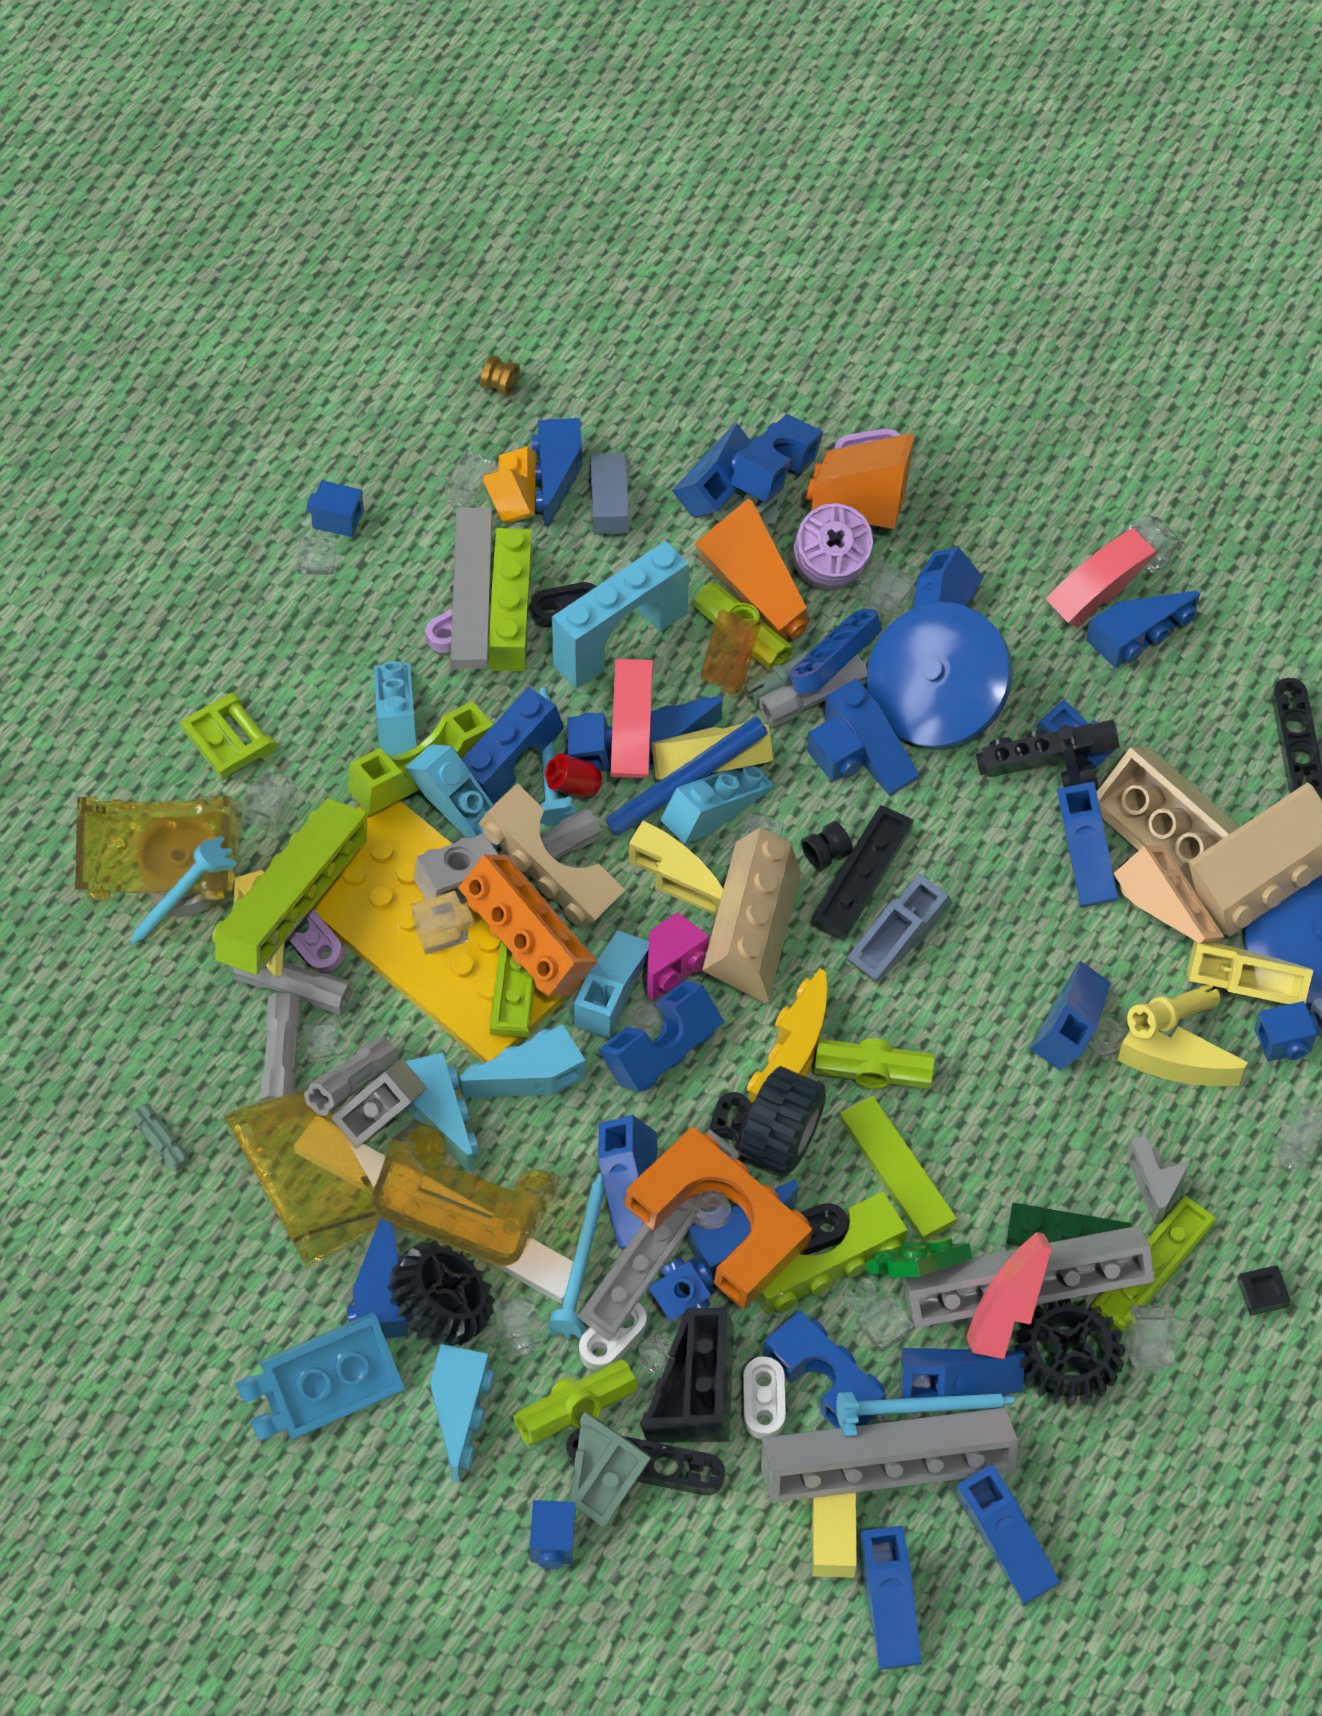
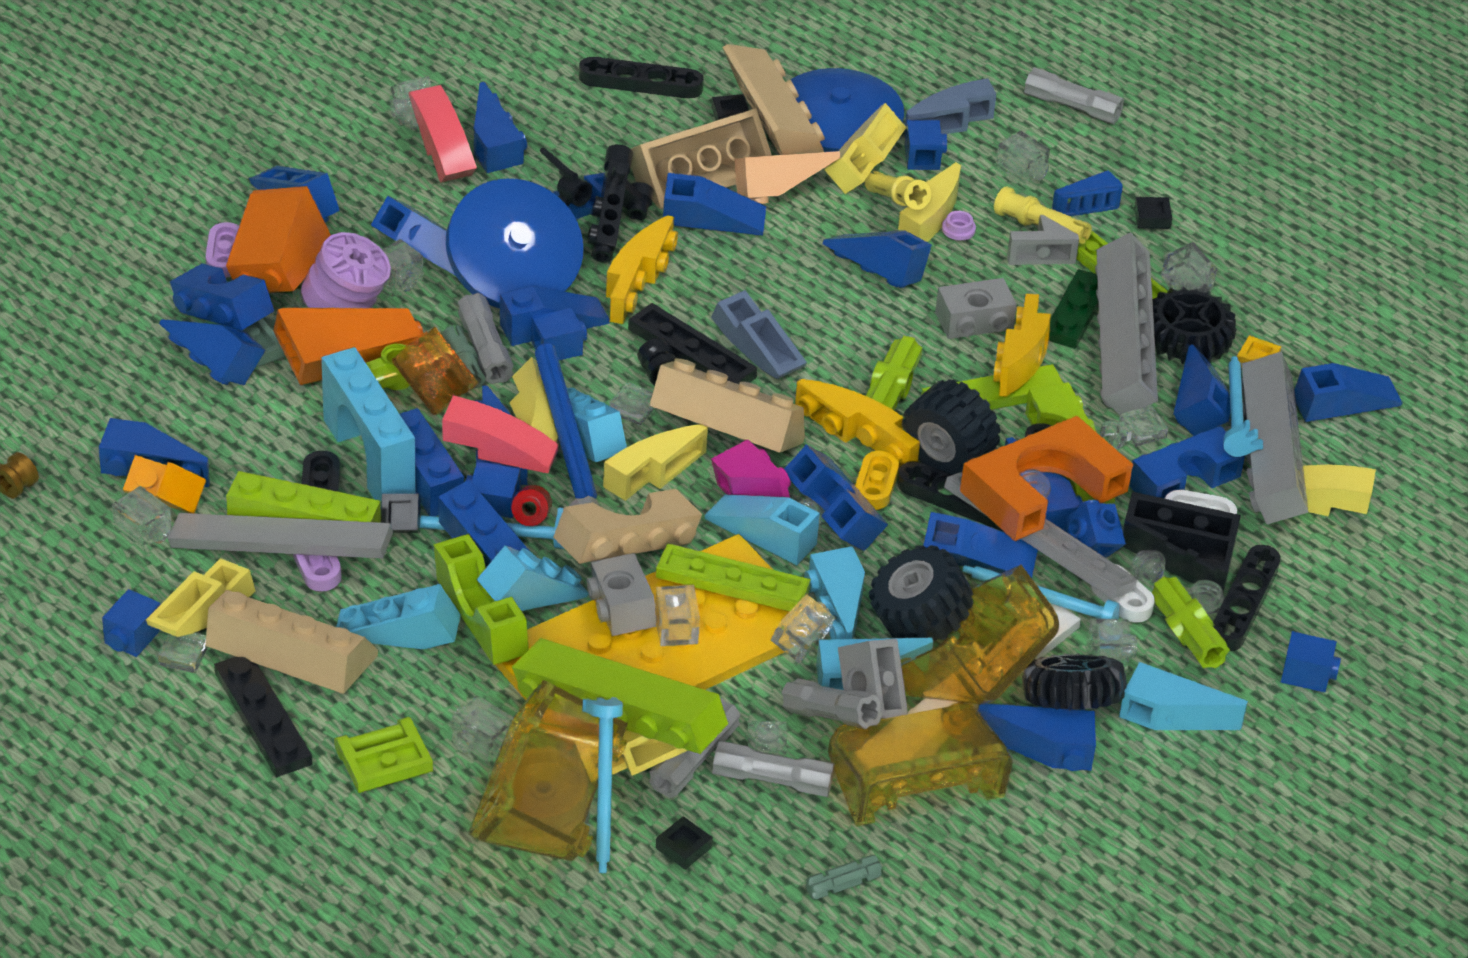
camera: 80 degrees left, 15 degrees down
(170, 994) = (684, 842): none -> black plate
(260, 635) = (263, 715): none -> black plate
(323, 1379) = (1140, 786): dark azure tile -> none
(345, 628) = (287, 641): none -> tan slope
(373, 551) = (188, 605): none -> light yellow slope
(454, 1035) = (803, 628): none -> clear brick
(526, 1132) = (921, 594): none -> black wheel
(527, 925) = (714, 540): orange brick -> none
(539, 673) = (402, 512): none -> plate
(592, 683) = (433, 465): none -> blue arch
(604, 1469) = (1260, 610): sand green wing -> none
(609, 493) = (205, 422): sand blue slope -> none
(624, 1411) = (1208, 595): none -> clear plate
(714, 1073) = (878, 478): none -> yellow plate
(835, 651) = (456, 307): blue beam -> none
(890, 1596) = (1395, 464): blue slope -> none
(919, 1259) = (1104, 373): green plate -> none
(947, 1180) = (1023, 347): none -> yellow slope
(972, 483) = (286, 177): none -> blue slope
(982, 796) = (639, 263): none -> yellow slope
(1009, 1298) = (1158, 320): coral slope -> none
(1017, 1106) = (975, 308): none -> light grey brick
(1046, 1433) = (1256, 348): none -> yellow plate
(1061, 708) = (570, 186): none -> black plant
(1165, 1083) = (959, 225): none -> lavender plate
(1207, 1157) = (1028, 210): none -> light yellow pin
(1266, 1218) = (1098, 194): none -> blue slope

